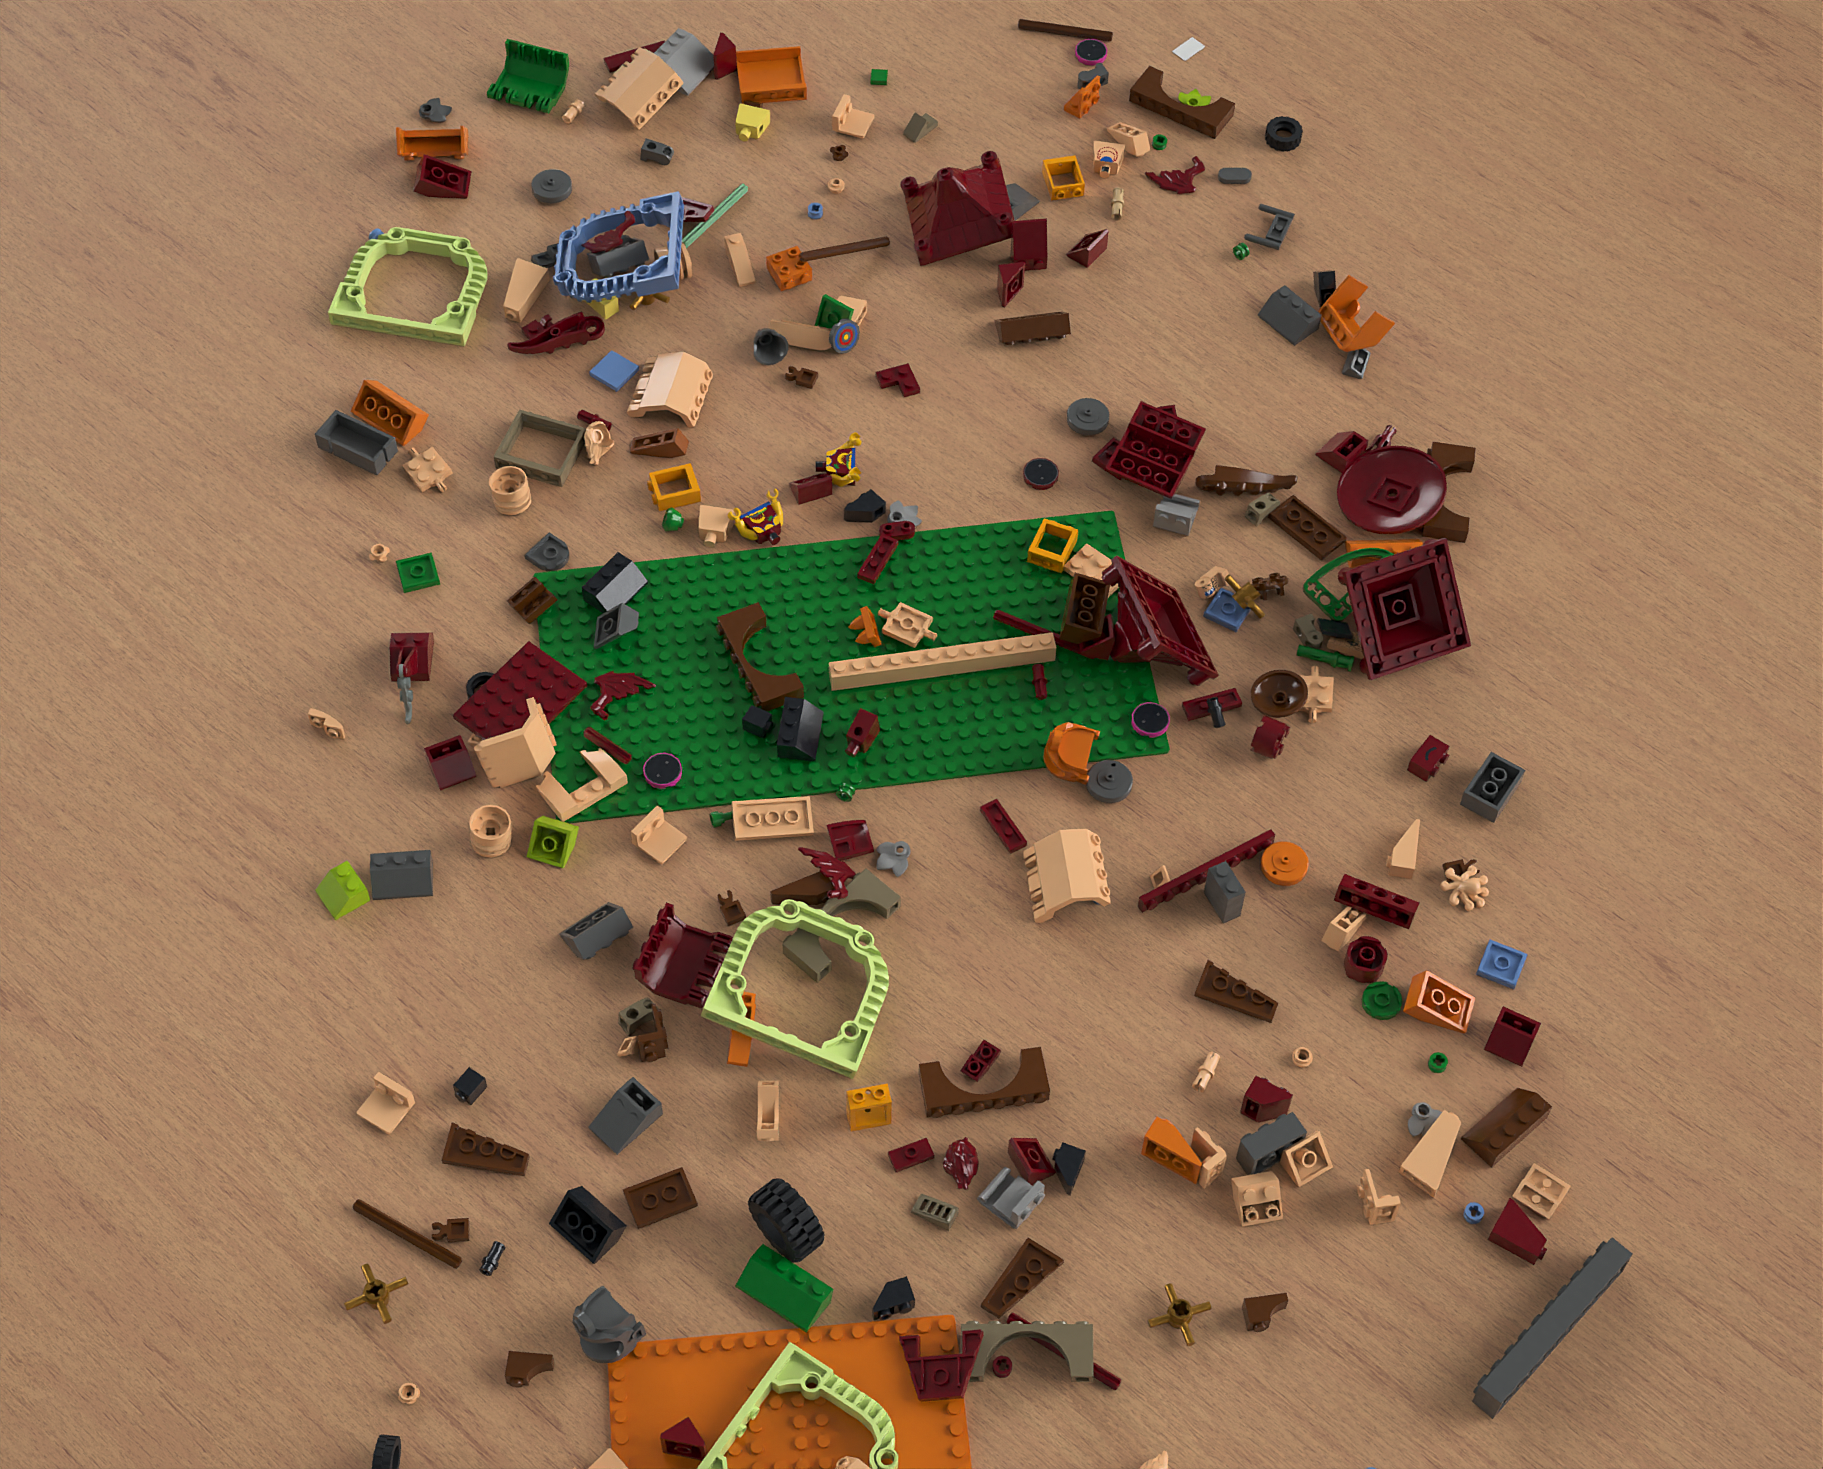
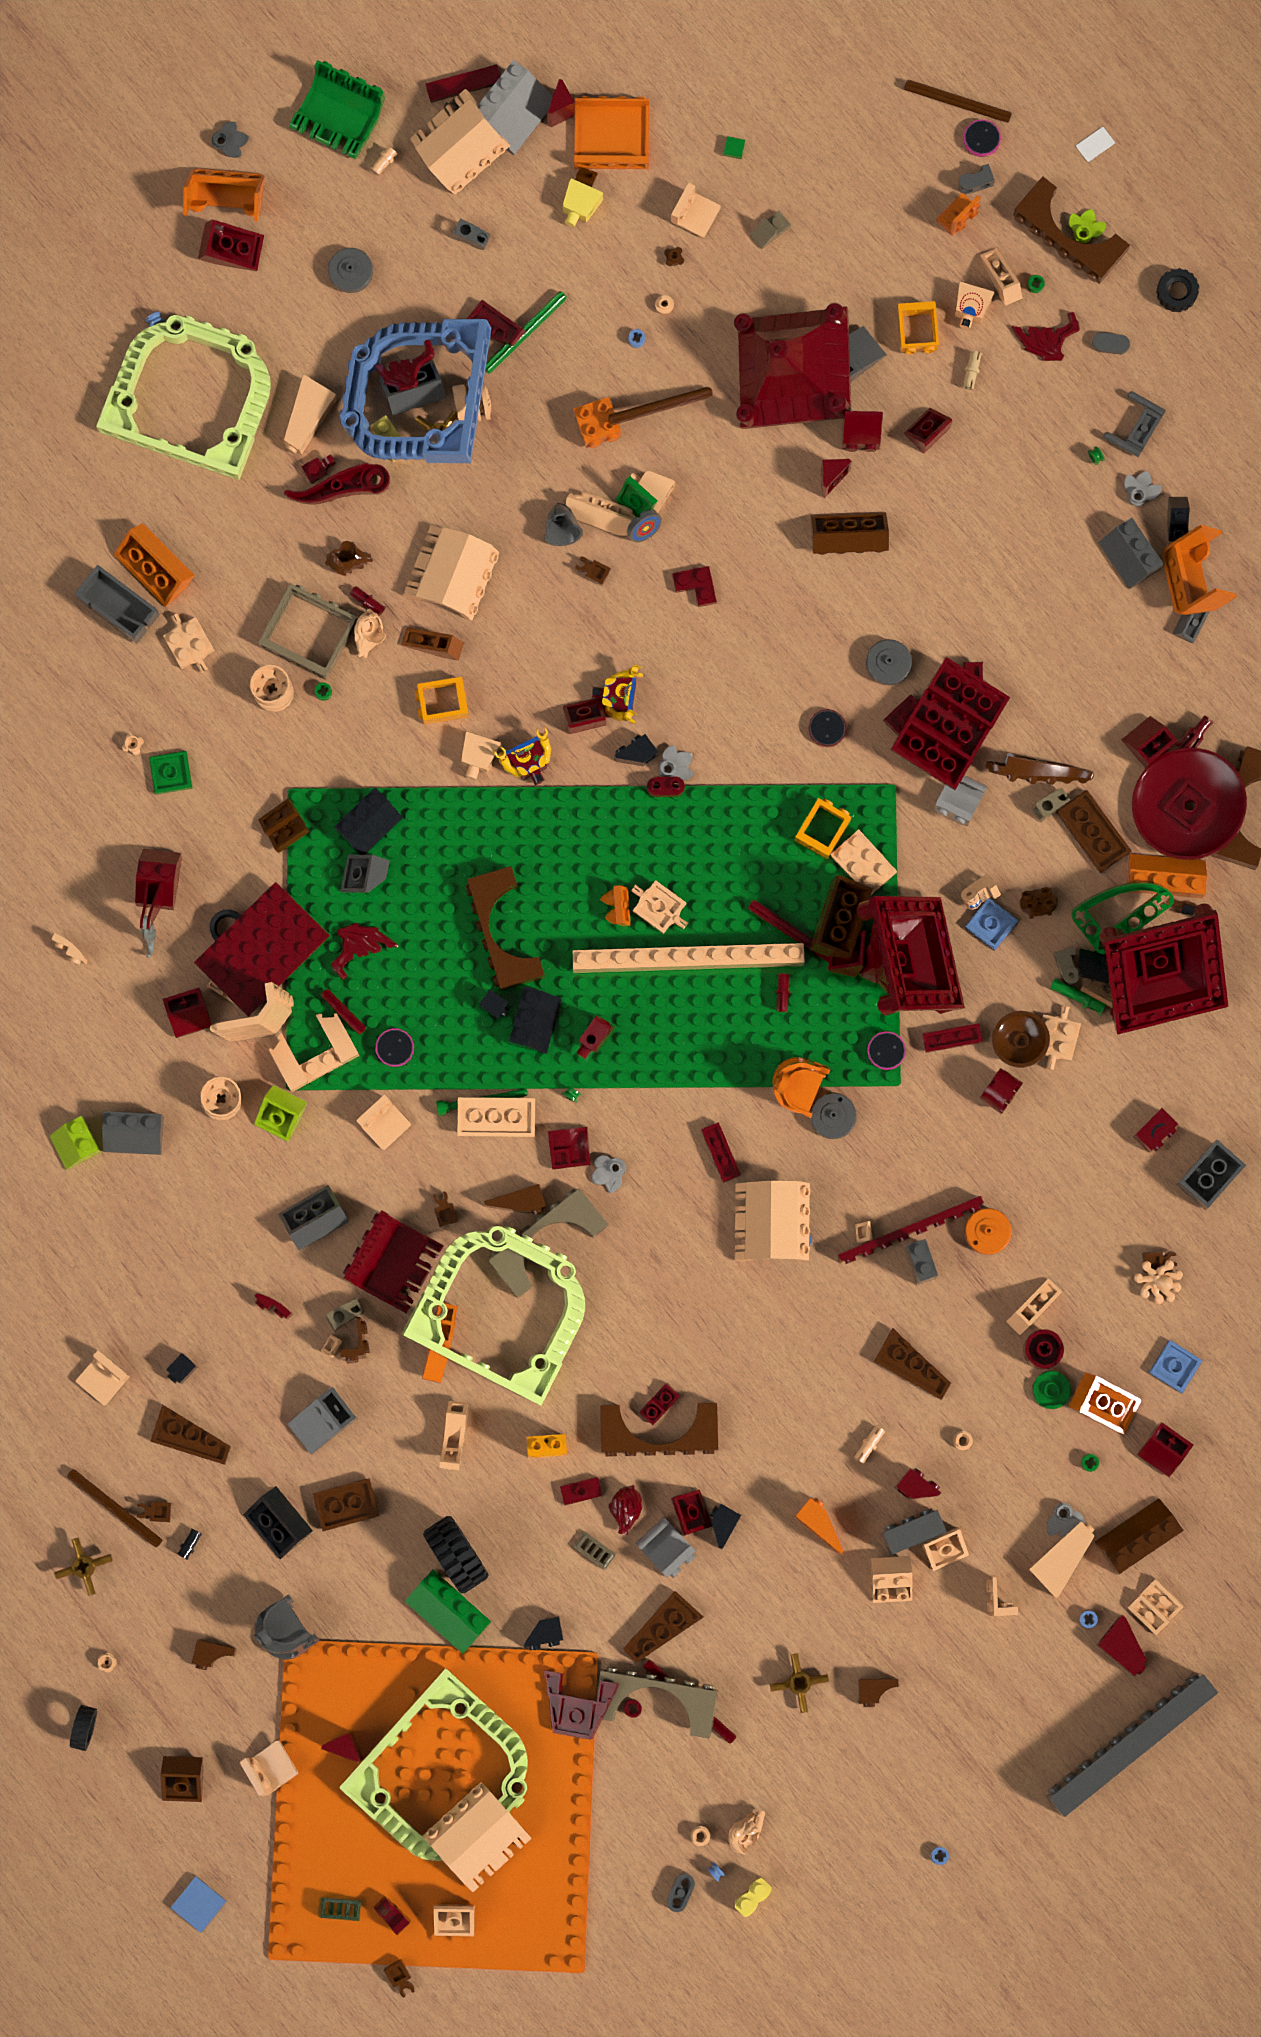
camera: 10 degrees right, 25 degrees up
(546, 259) = (335, 371): dark grey slope -> none
(549, 553) = (306, 765): dark grey tile -> none
(559, 498) = (328, 694): none -> green bush
(559, 1013) = (268, 1303): none -> dark red slope
(571, 389) = (347, 558): none -> reddish brown hair
(614, 370) = (395, 535): medium blue tile -> none
(672, 520) = (435, 743): green cone -> none
(739, 259) = (545, 402): light nougat slope -> none
(831, 868) = (547, 1184): dark red animal -> none
(877, 559) = (640, 821): dark red plate -> none
(1213, 1157) = (853, 1548): light nougat bracket -> none
(1214, 709) = (952, 1049): black pin -> none
(1245, 595) = (1009, 918): pearl gold bar -> none
(1287, 272) = (1141, 486): none -> light grey plate
(1376, 901) = (1058, 1287): dark red brick -> none
(1403, 856) = (1106, 1239): light nougat slope -> none

